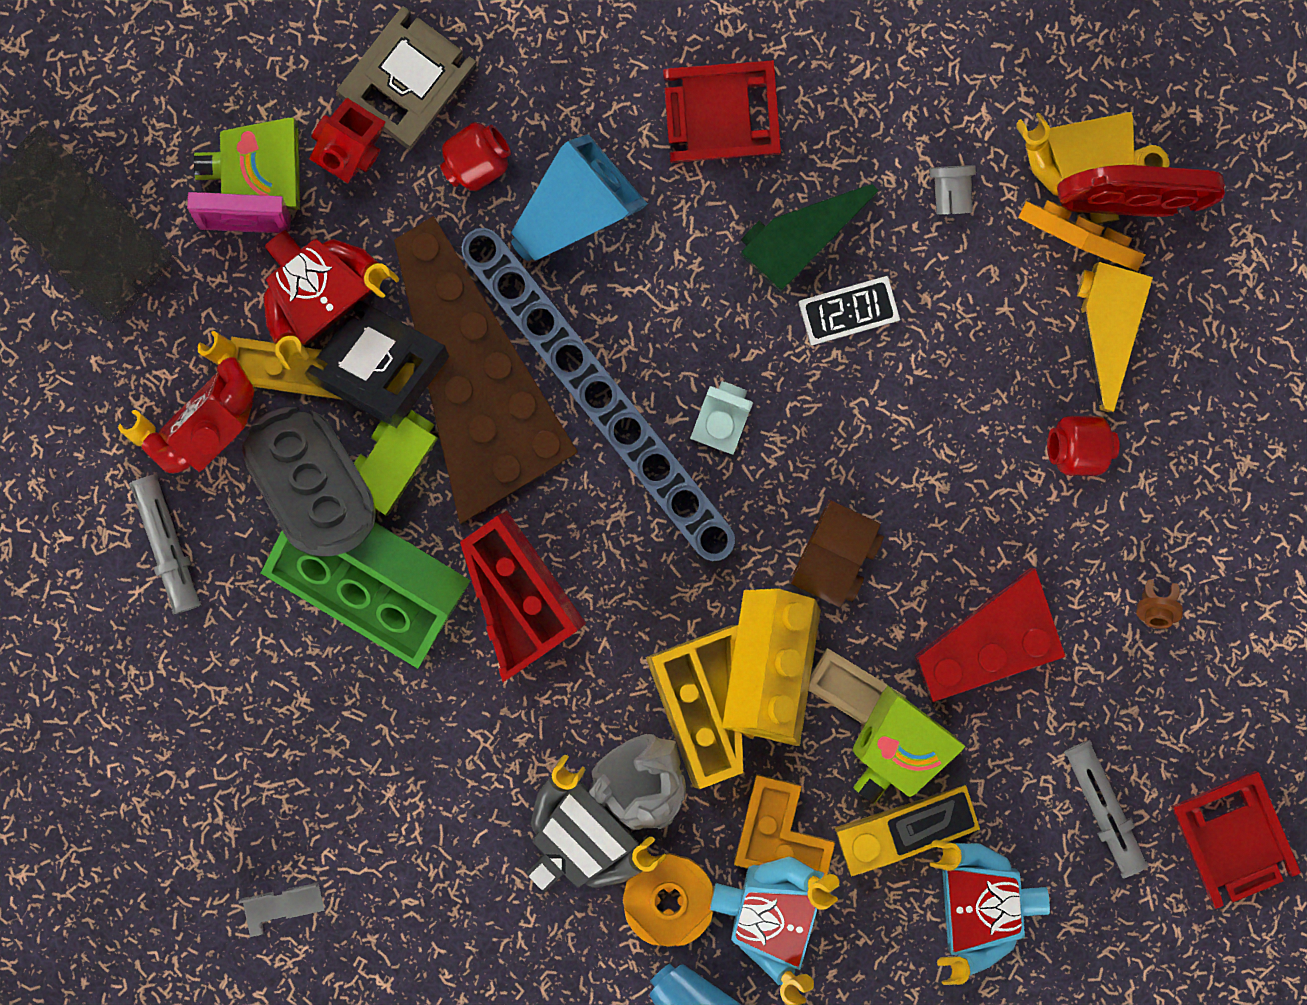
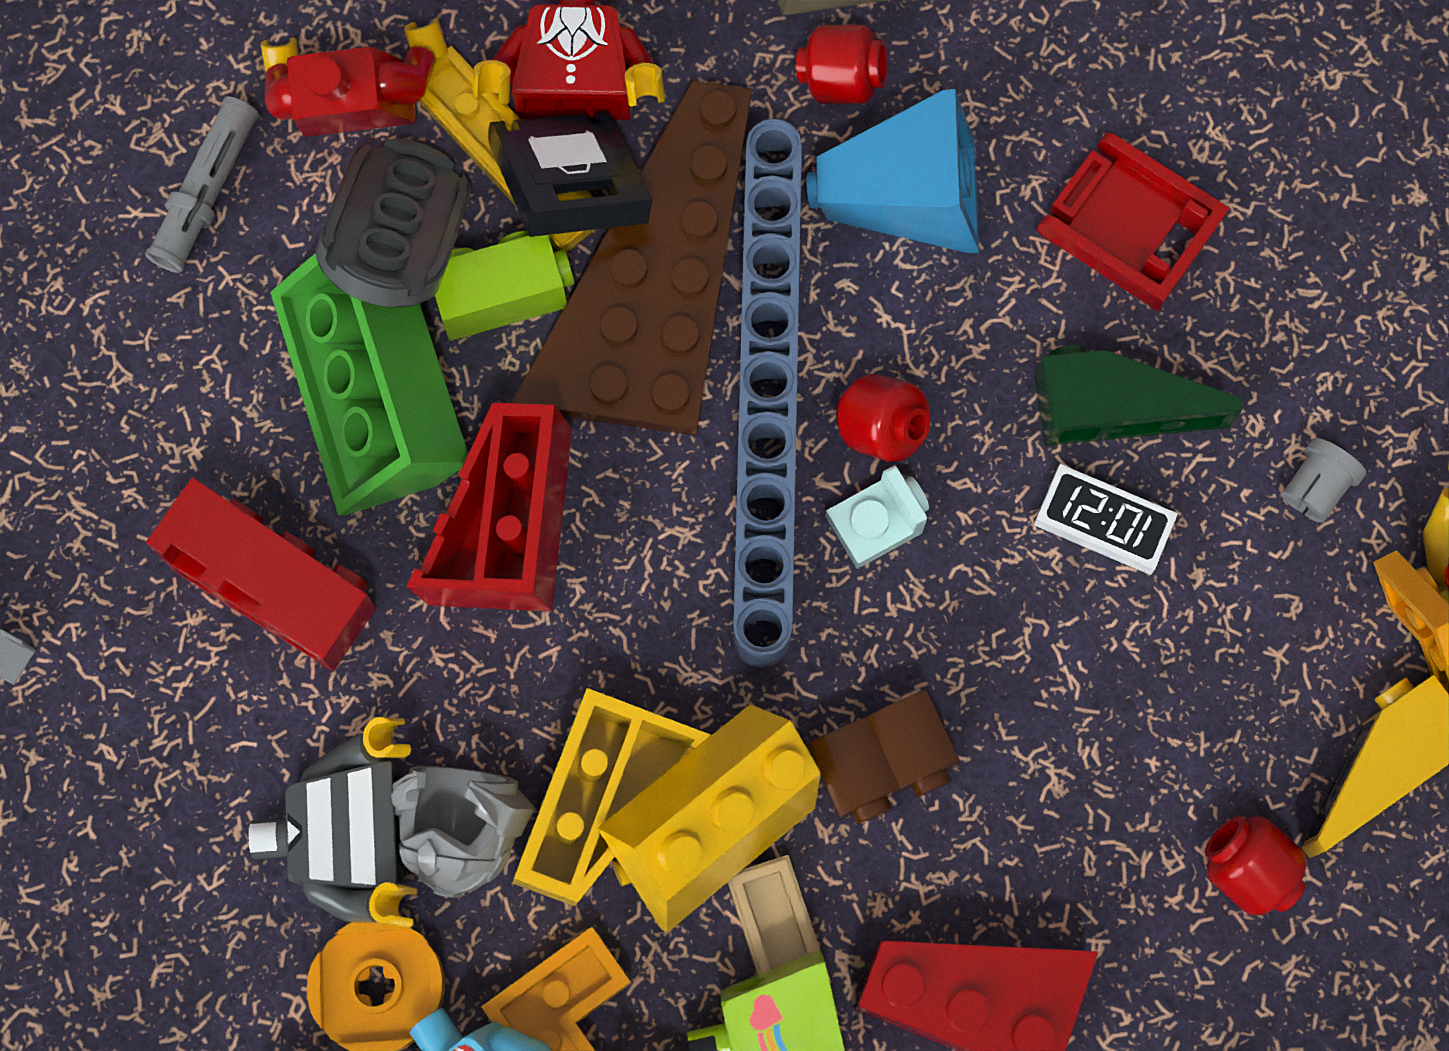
camera: 35 degrees right, 15 degrees down
(416, 738) = (263, 574): none -> red wedge
(679, 360) = (883, 417): none -> red head

